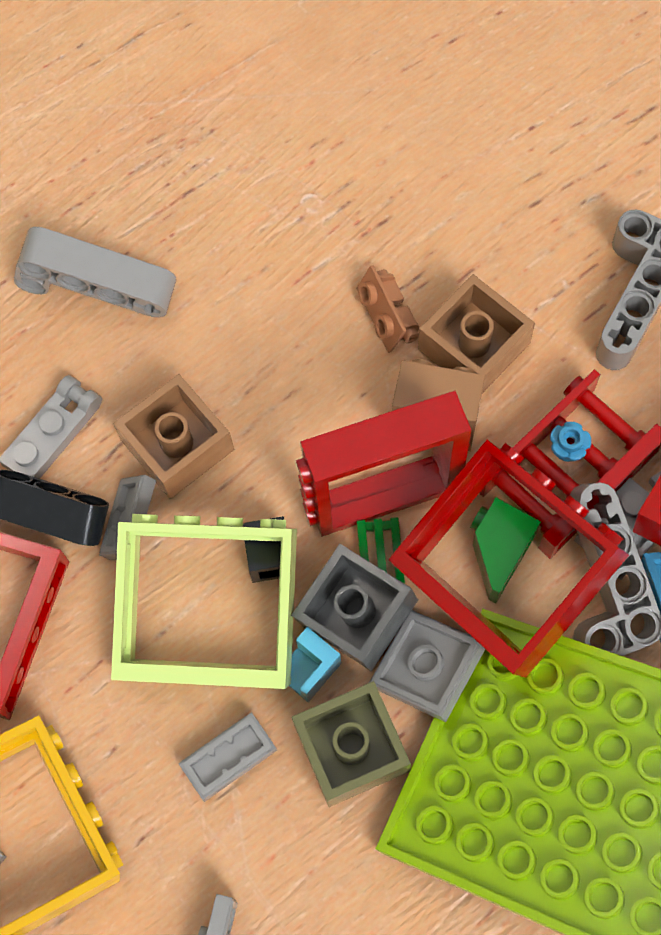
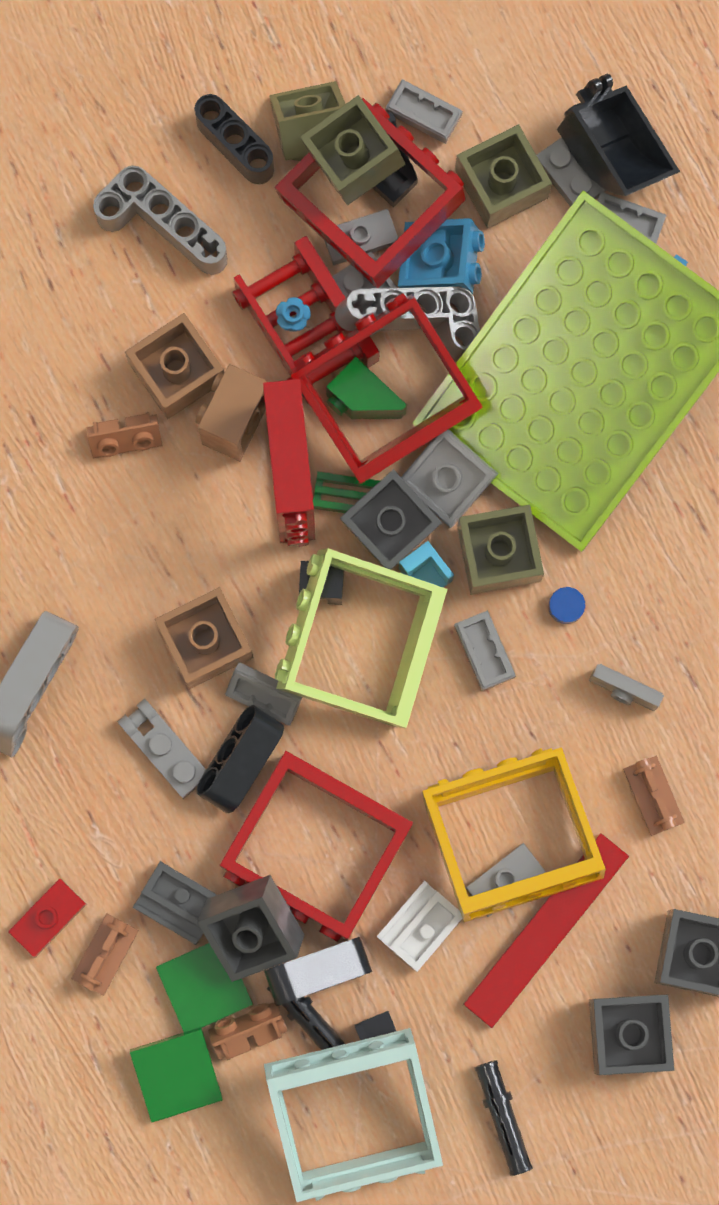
camera: 85 degrees left, 10 degrees up
(306, 846) = (566, 605): none -> blue tile

